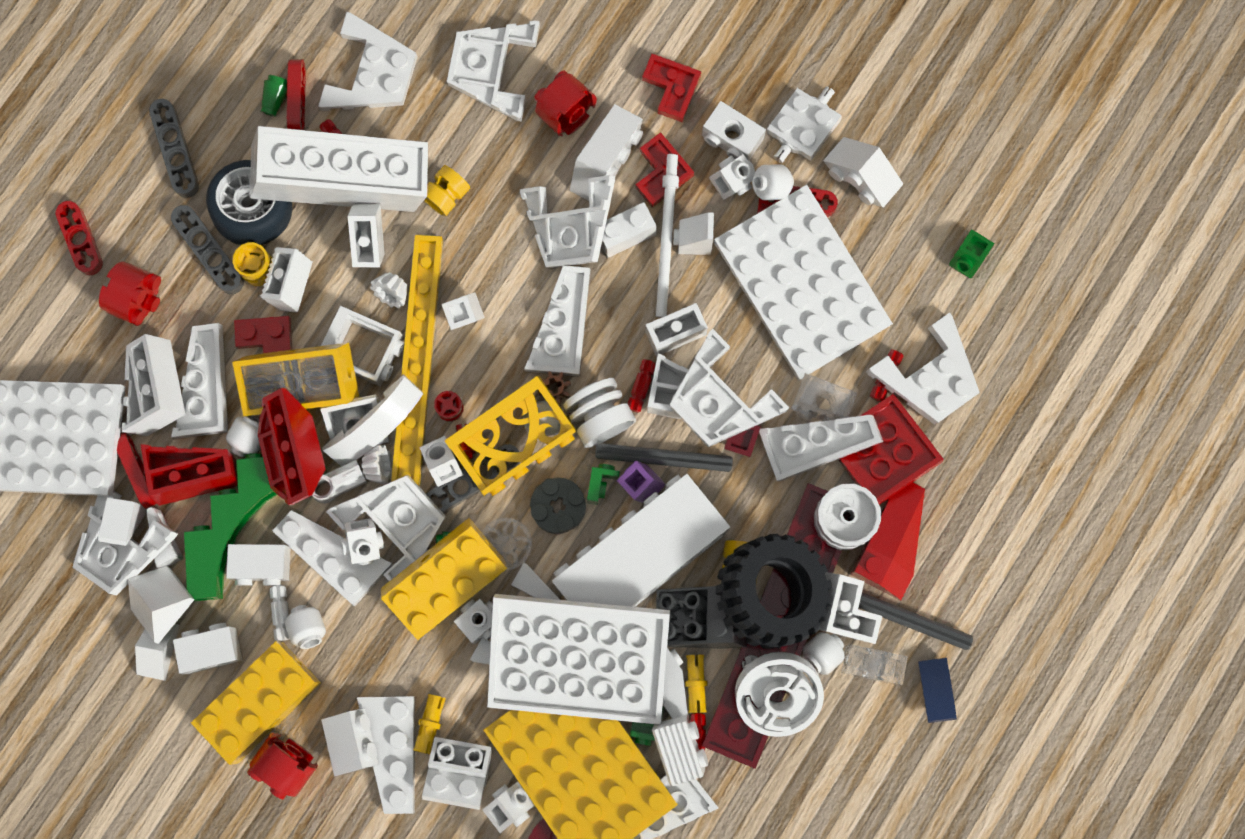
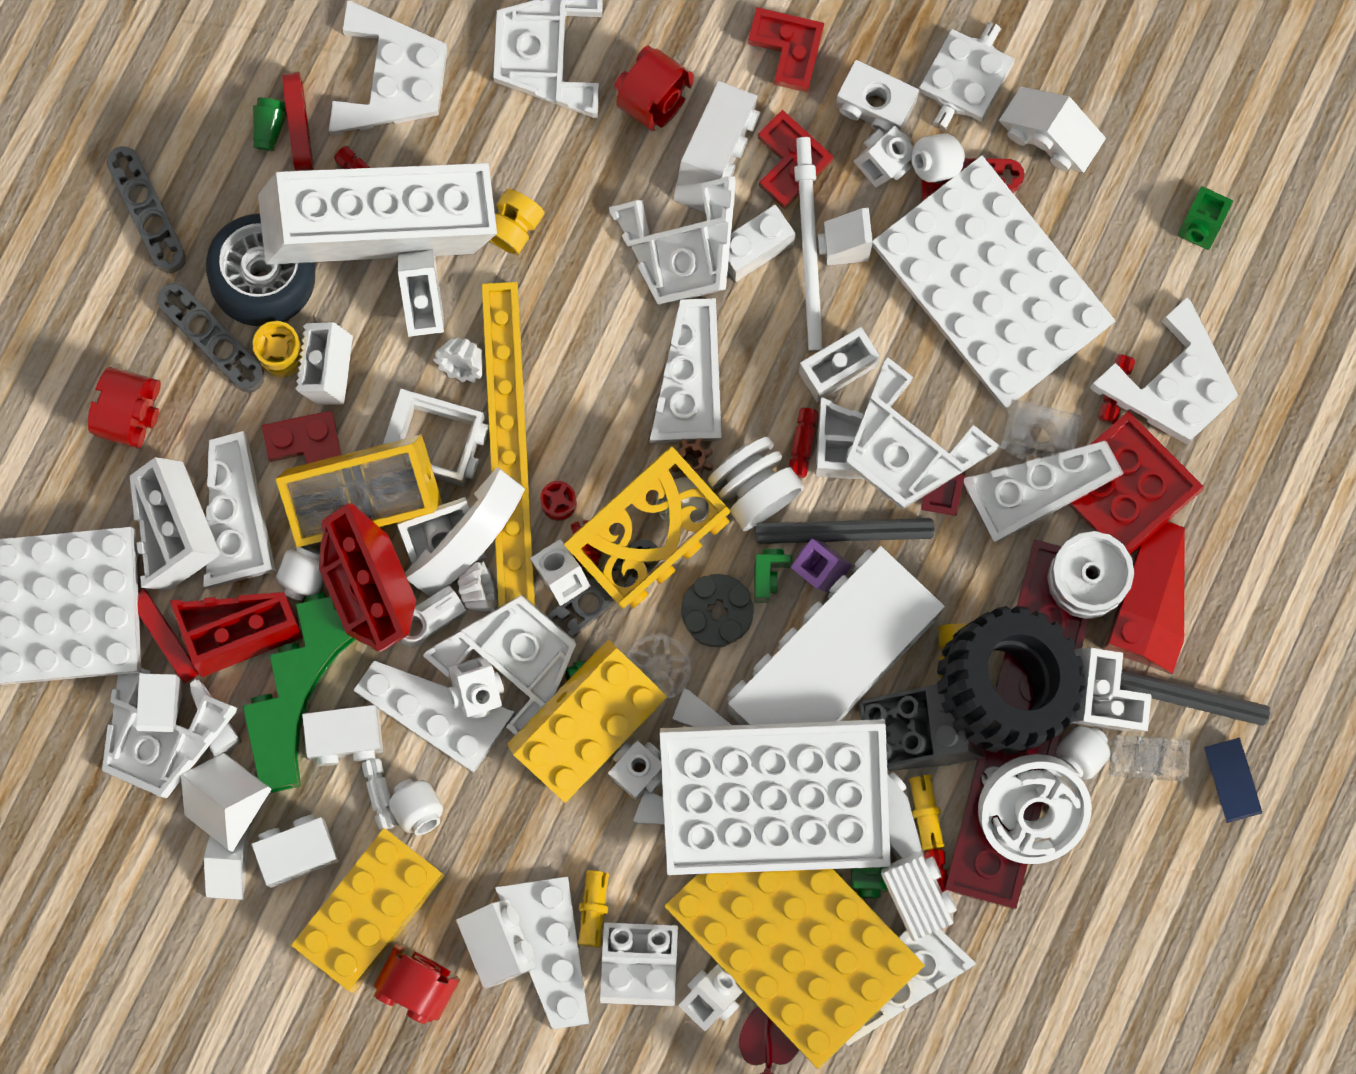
camera: 10 degrees left, 0 degrees up
(70, 230) = (35, 318): red beam -> none
(463, 311) = (560, 375): white brick -> none

